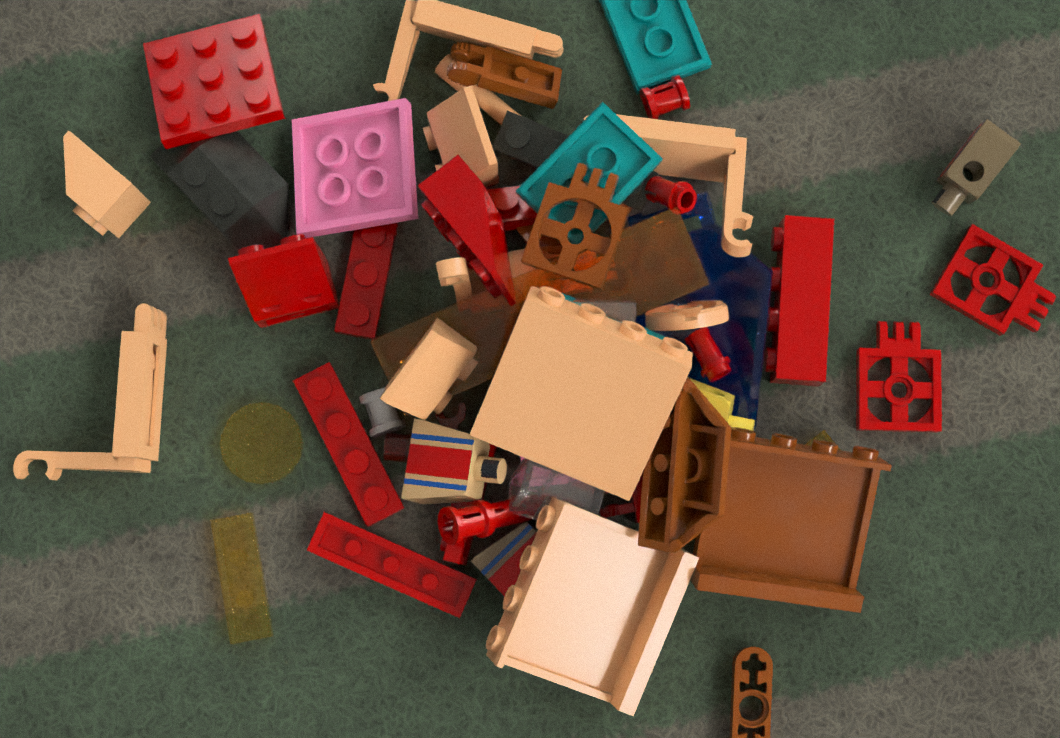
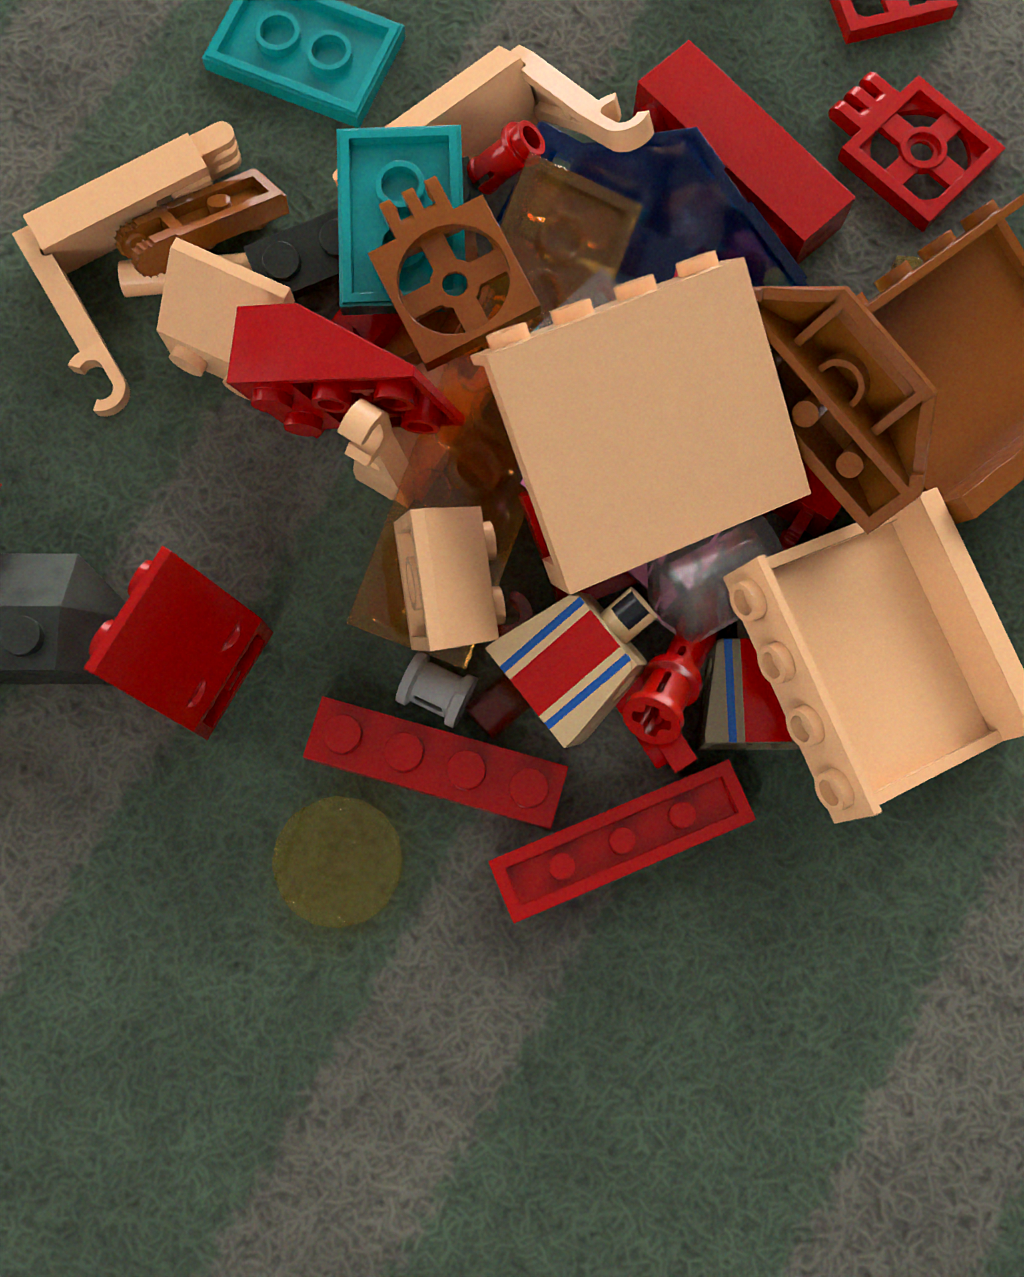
camera: 45 degrees left, 5 degrees down
(136, 411) = (154, 970): light nougat hinge -> none
(242, 578) = (472, 1034): clear yellow tile -> none
(354, 168) = (136, 460): bright pink plate -> none
(366, 281) = (252, 546): red plate -> none
(665, 98) = (394, 93): red bush -> none
(689, 316) = (665, 245): light nougat tile -> none

